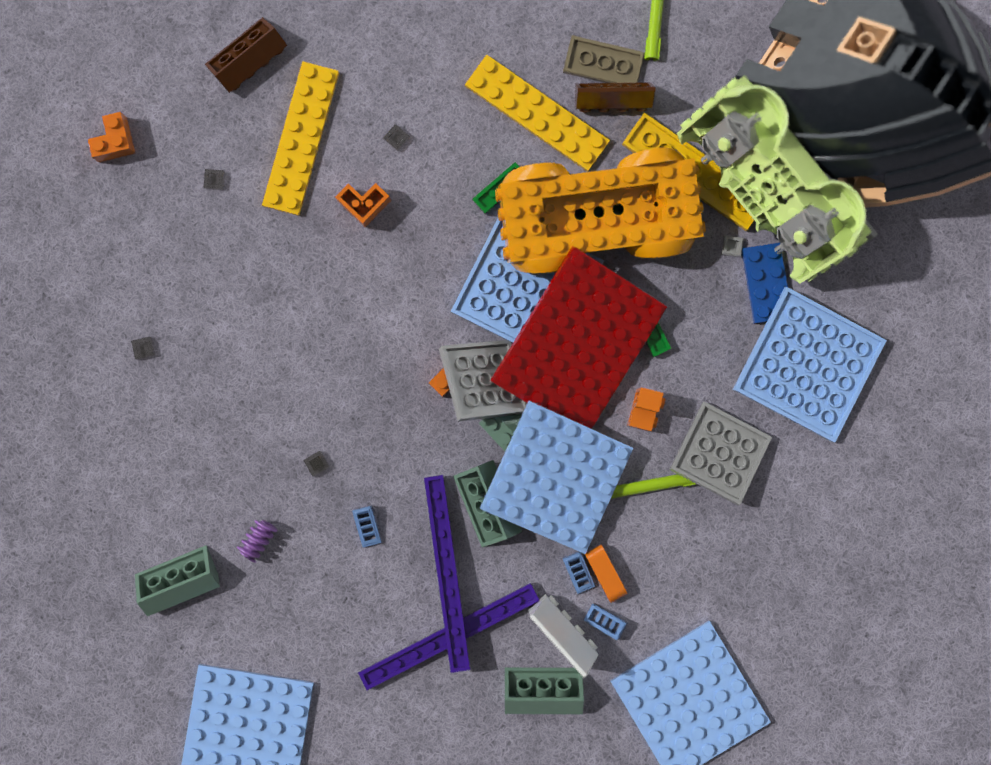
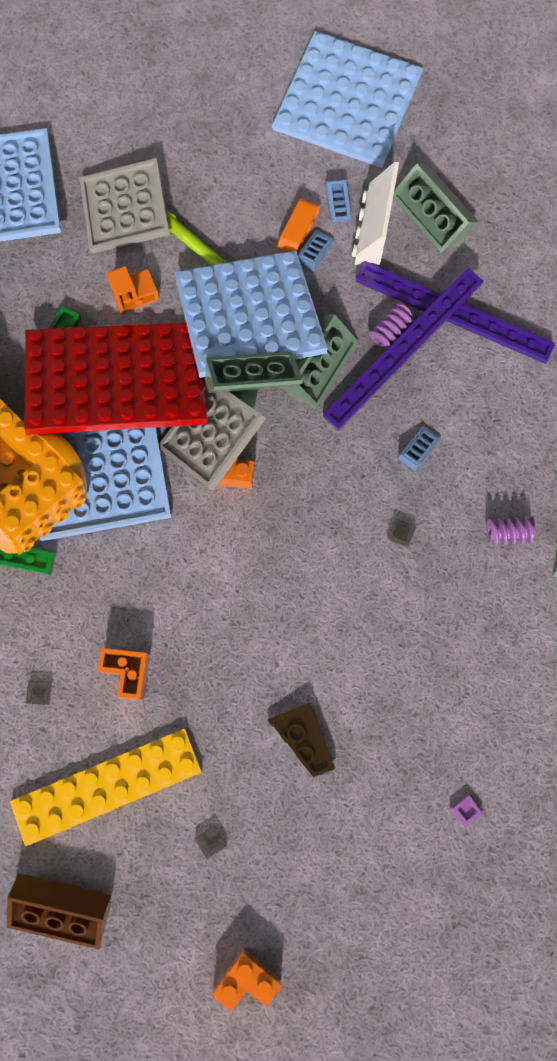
camera: 130 degrees left, 10 degrees down
(104, 358) = (466, 810): none -> medium lavender tile
(143, 348) = (426, 779): clear smoke tile -> none
(231, 289) = (303, 735): none -> dark brown wing
(470, 578) = (391, 326): none -> medium lavender piece
(498, 437) = (251, 372): none -> sand green slope

